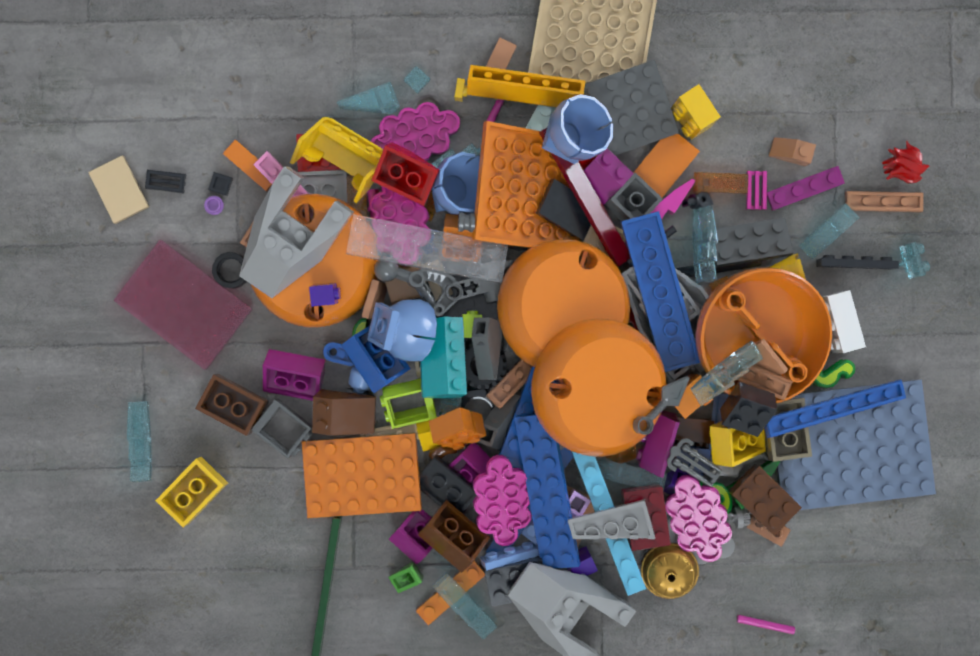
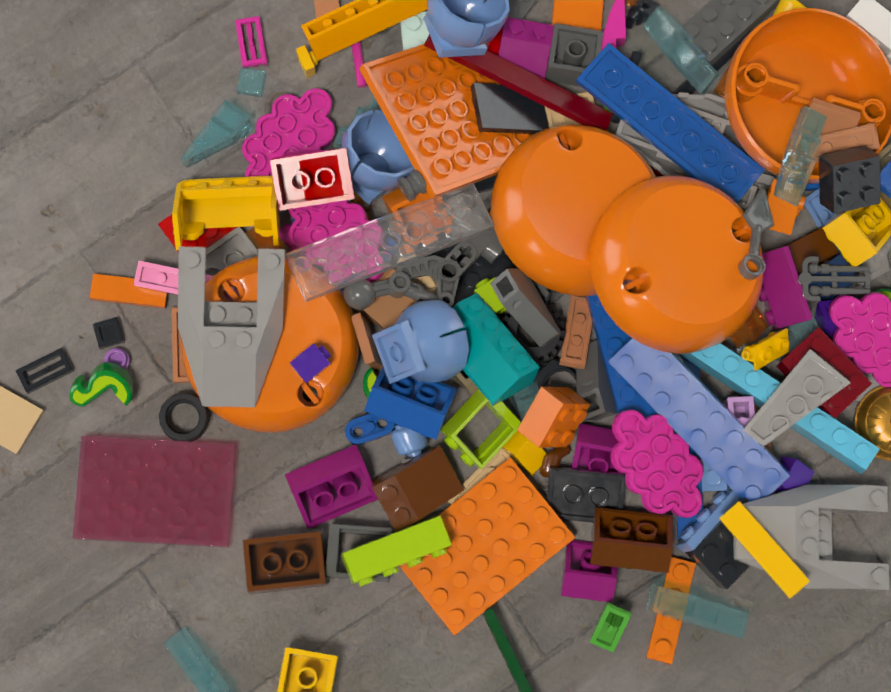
camera: 45 degrees left, 10 degrees down
(196, 212) = (102, 378): none -> green animal
(302, 445) = (396, 550): none -> lime brick
(428, 67) = (254, 62): none -> dark pink tile
(527, 604) = (764, 550): none -> yellow tile
(625, 477) = (767, 349): none -> yellow hinge

